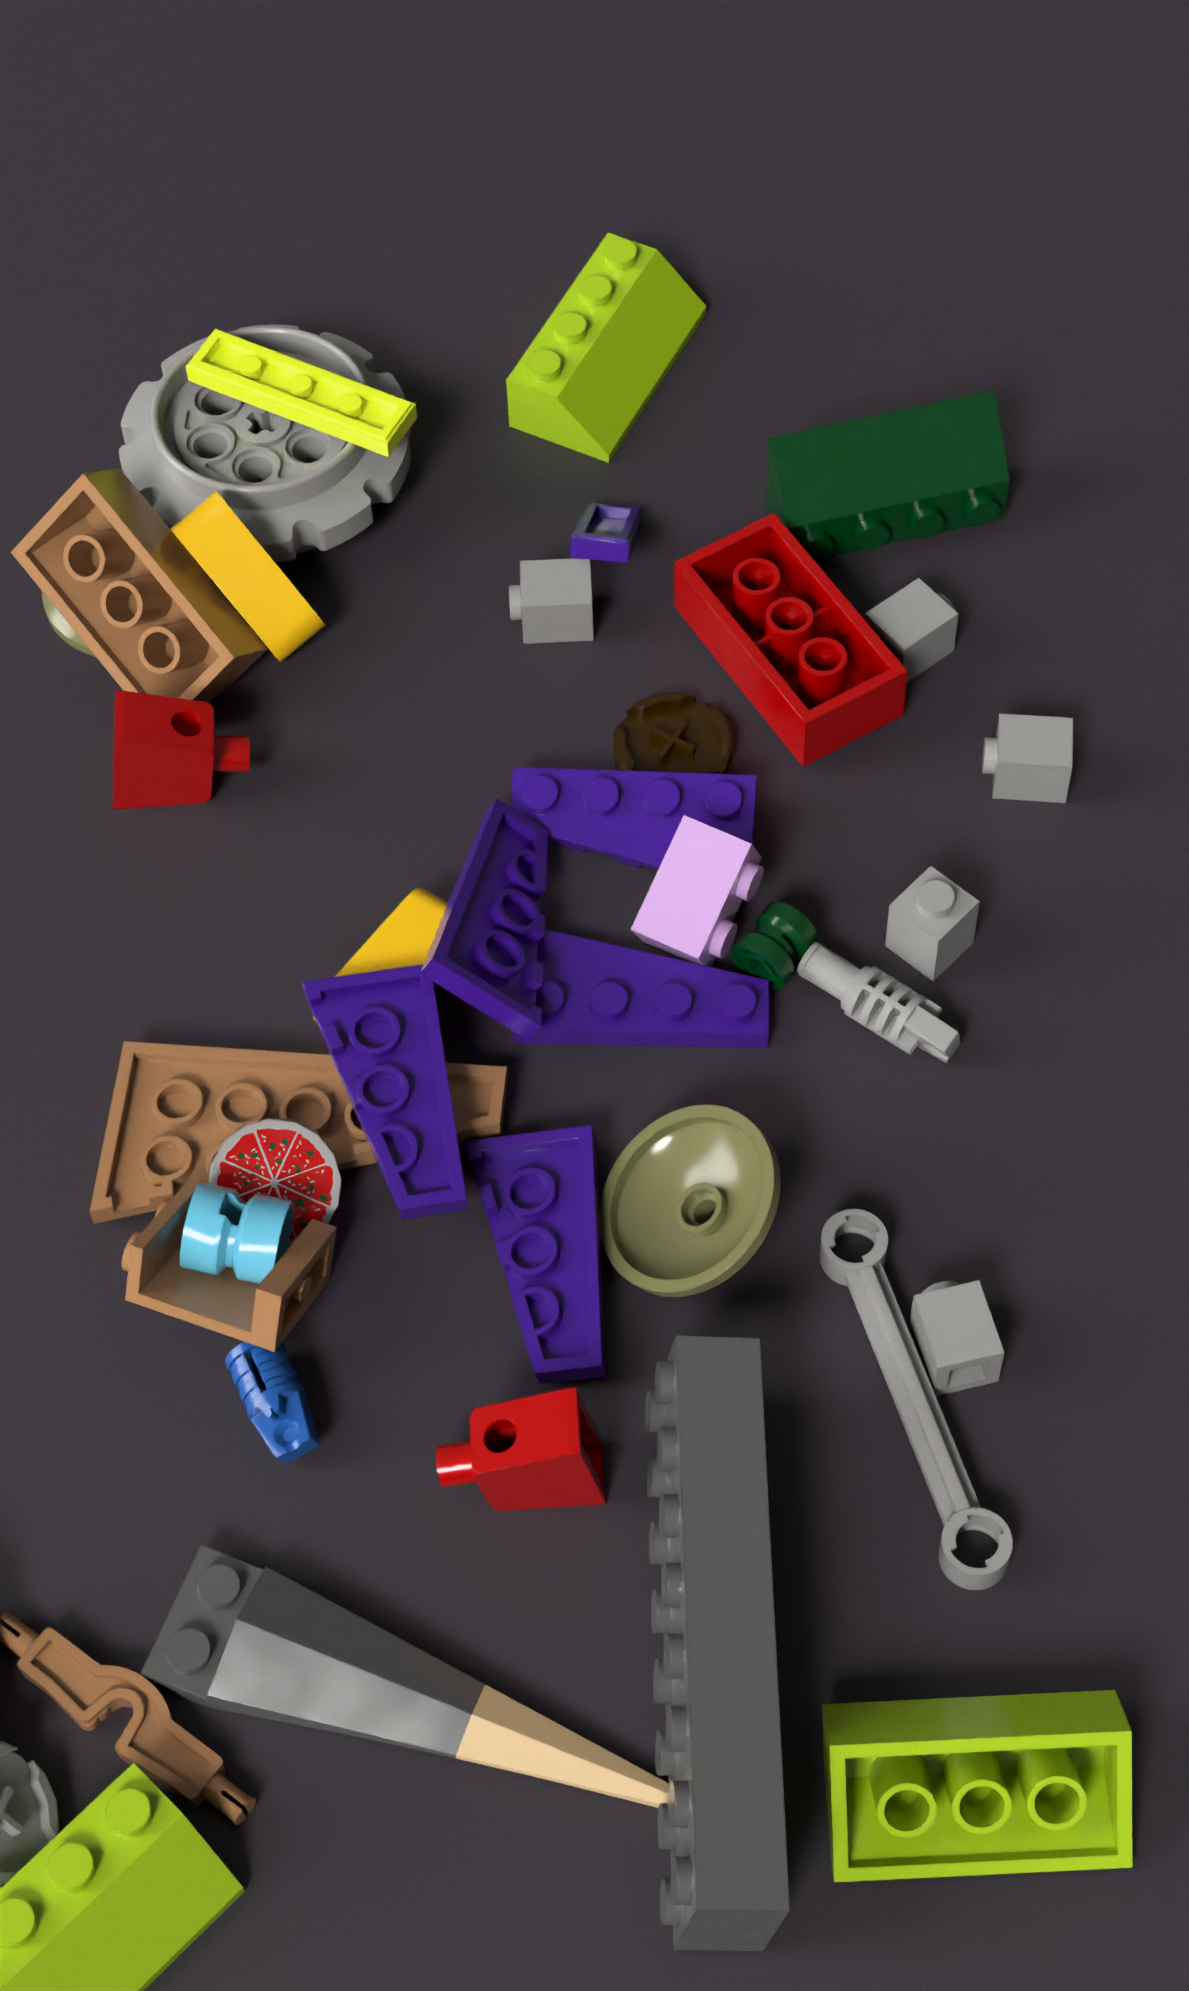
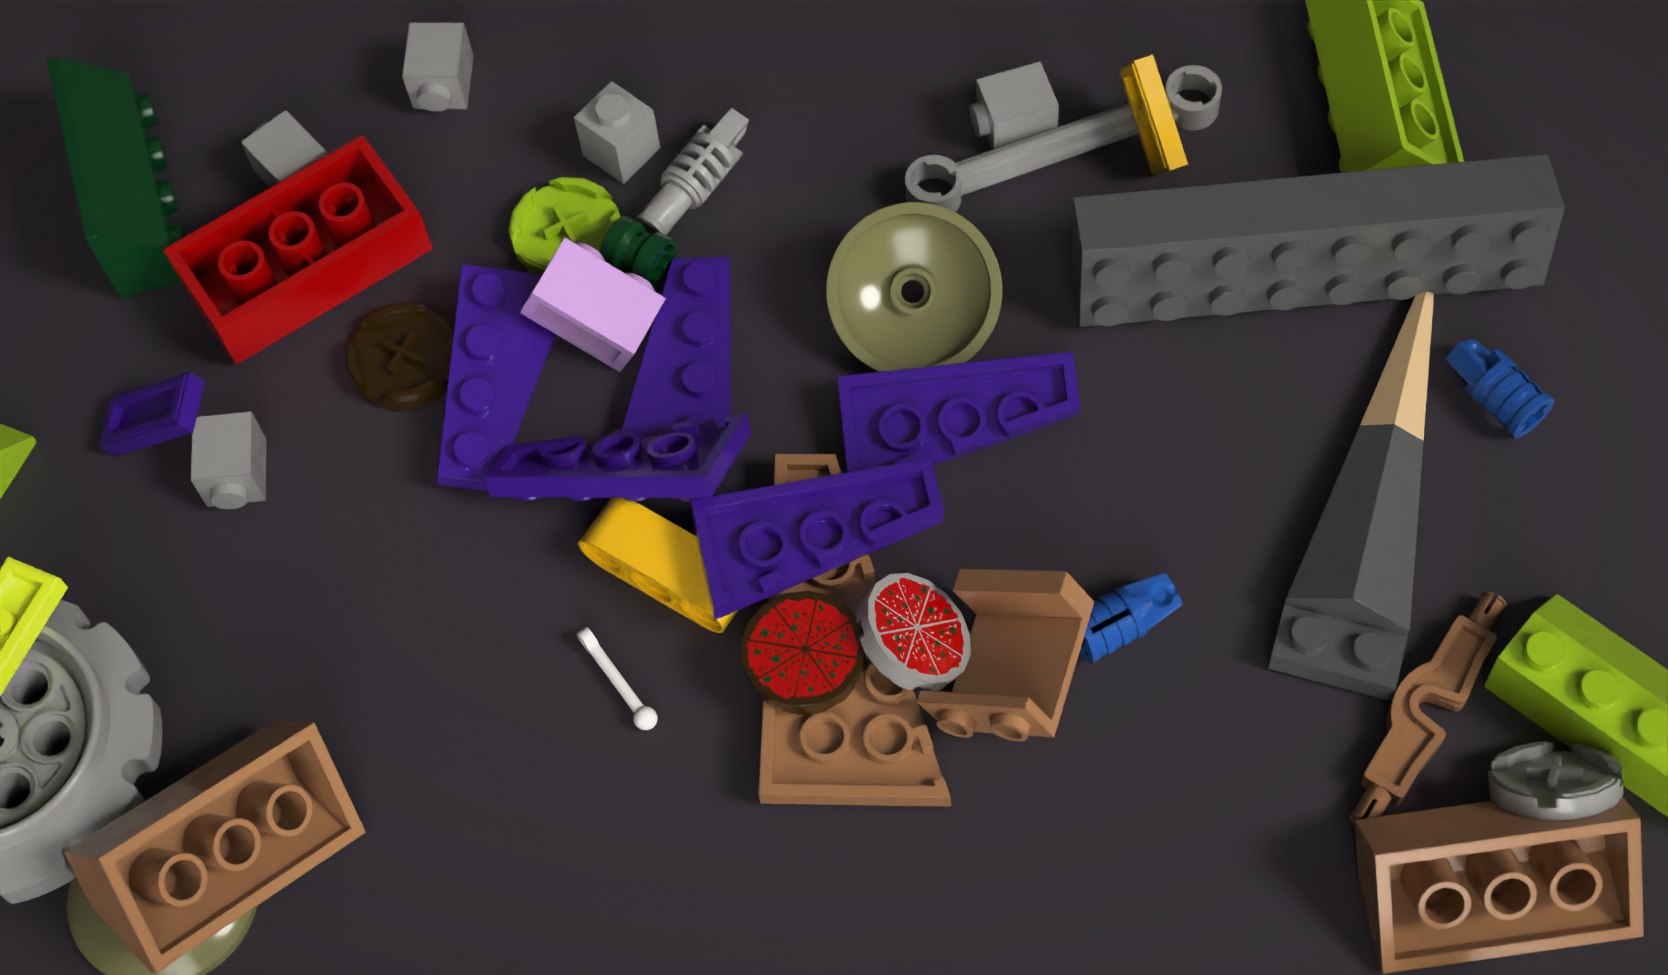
camera: 90 degrees left, 5 degrees up
(169, 751) = (412, 799): red torso -> none
(235, 1233) = (981, 641): medium azure wheel -> none
(248, 576) = (191, 732): yellow beam -> none
(263, 1073) = (803, 652): none -> tile
(325, 909) = (644, 716): none -> white hinge
(523, 1858) = (1501, 387): none -> blue hinge
(529, 1454) = (1164, 394): red torso -> none
(827, 881) = (559, 211): none -> lime tile
(920, 1475) = (1152, 115): none -> yellow tile

